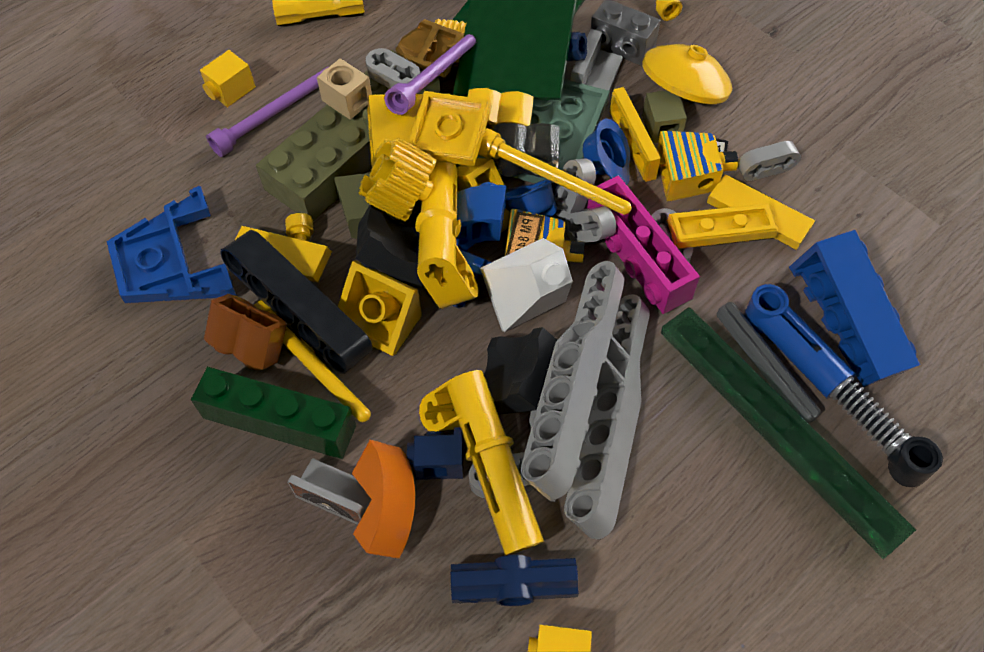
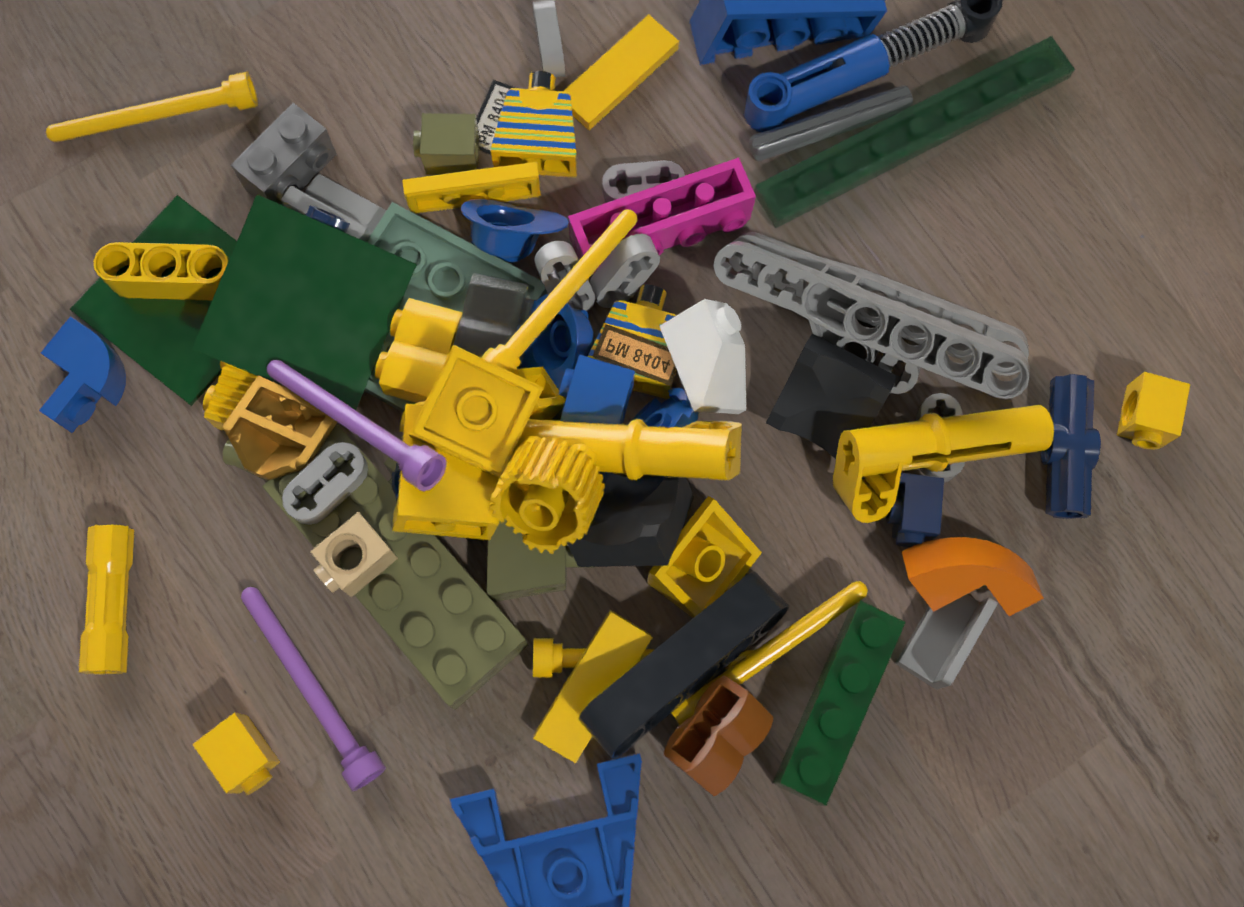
camera: 85 degrees left, 15 degrees up
(688, 73) = (388, 97): yellow dish -> none
(722, 225) = (645, 118): yellow tile -> none

